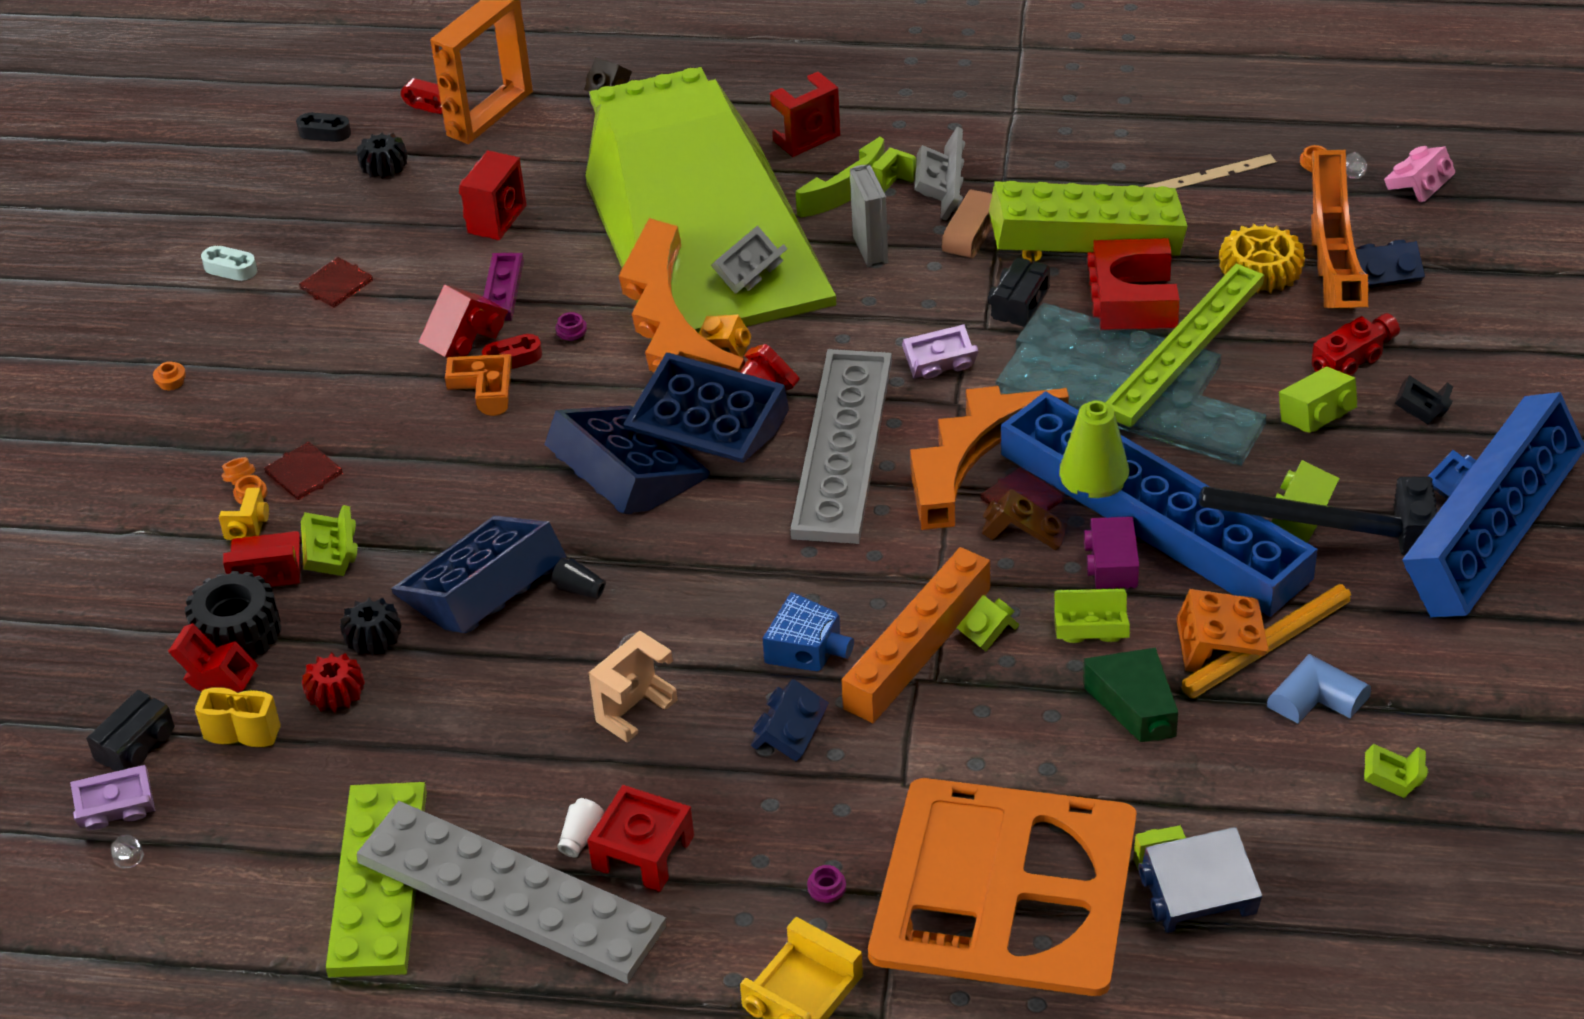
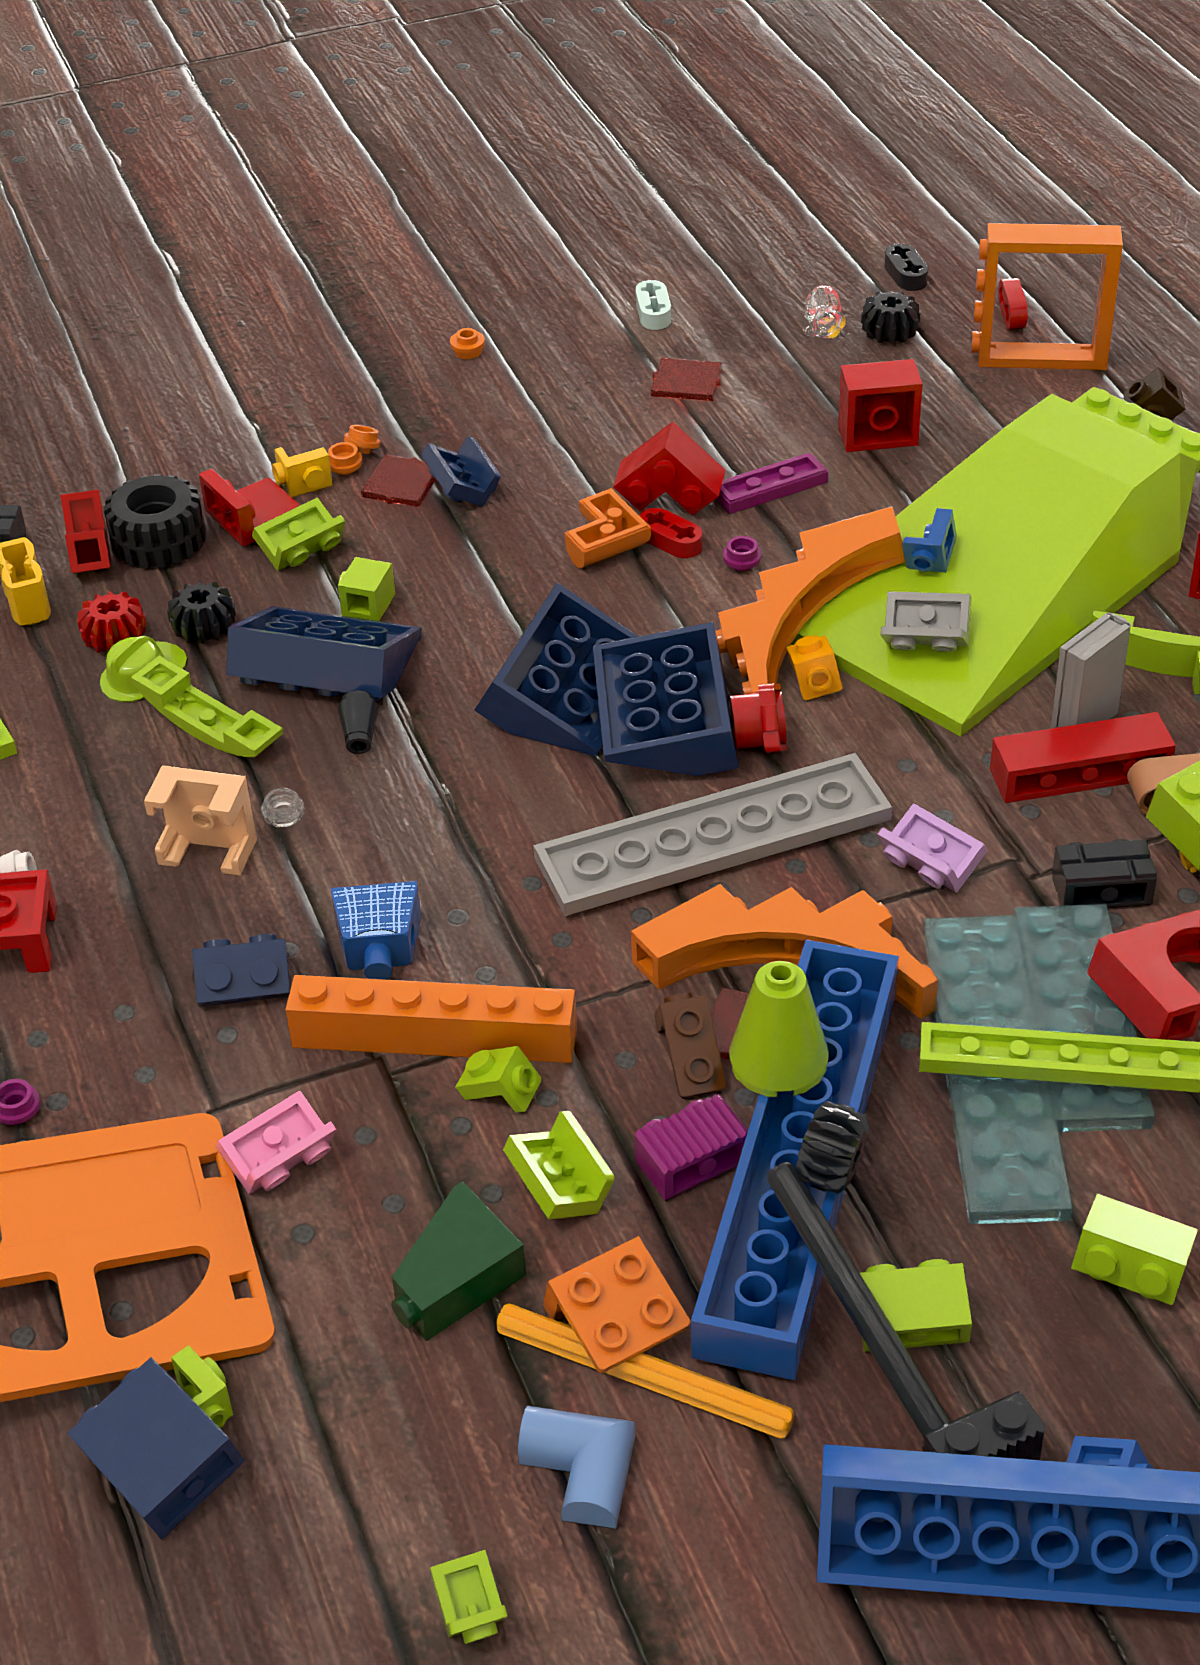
camera: 60 degrees right, 0 degrees up
(341, 181) = (823, 313): none -> clear animal
(341, 424) = (463, 474): none -> dark blue bracket
(396, 688) = (128, 658): none -> lime piece
(431, 526) = (366, 589): none -> lime brick
(497, 663) = (199, 714): none -> lime slope
(690, 220) = (936, 547): none -> blue bracket
(910, 258) = (1076, 756): none -> red brick
(975, 748) = (276, 1142): none -> bright pink bracket
(1202, 464) = (832, 1147): none -> black gear

